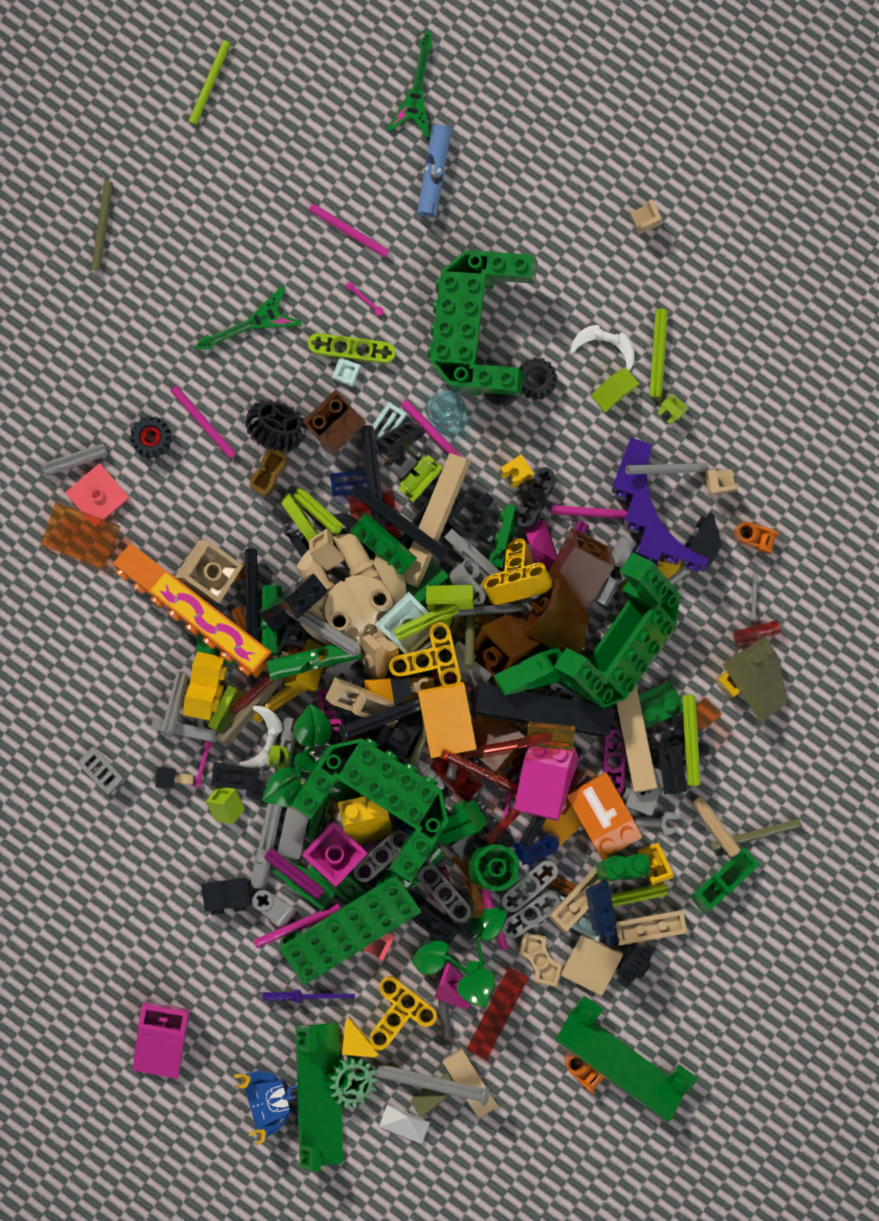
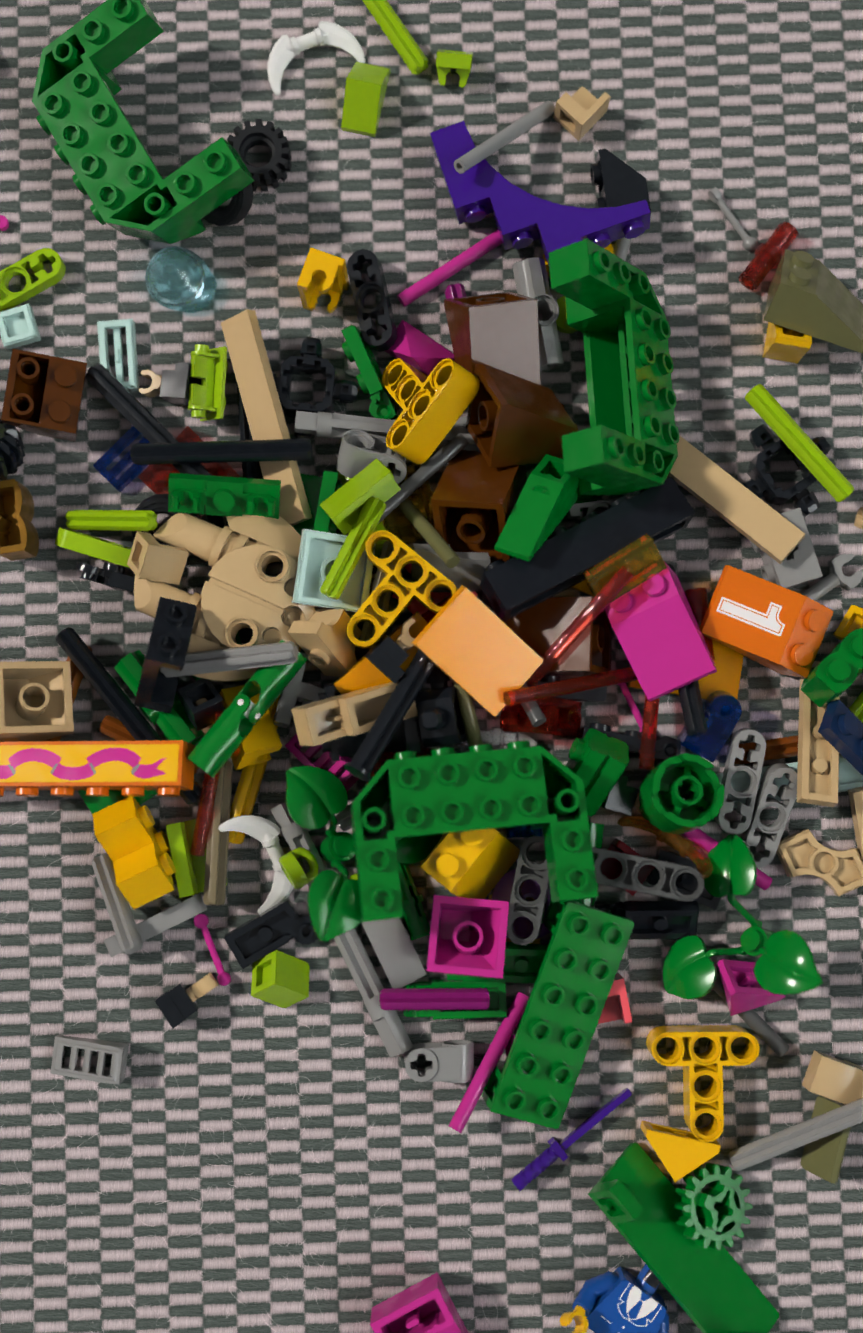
camera: 35 degrees left, 0 degrees up
(226, 894) = (369, 1092): black brick -> none
(393, 451) = (144, 362): black slope -> none
(404, 1124) = (816, 1203): white slope -> none
(425, 424) = (169, 316): dark pink piece -> none
(497, 1013) = (829, 1001): clear red tile -> none
(620, 745) = (724, 533): magenta beam -> none
(660, 704) = (721, 431): green plate -> none
(672, 770) = (806, 498): black hinge -> none
(706, 714) = (790, 399): clear orange panel -> none
(760, 537) = (681, 137): orange piece -> none

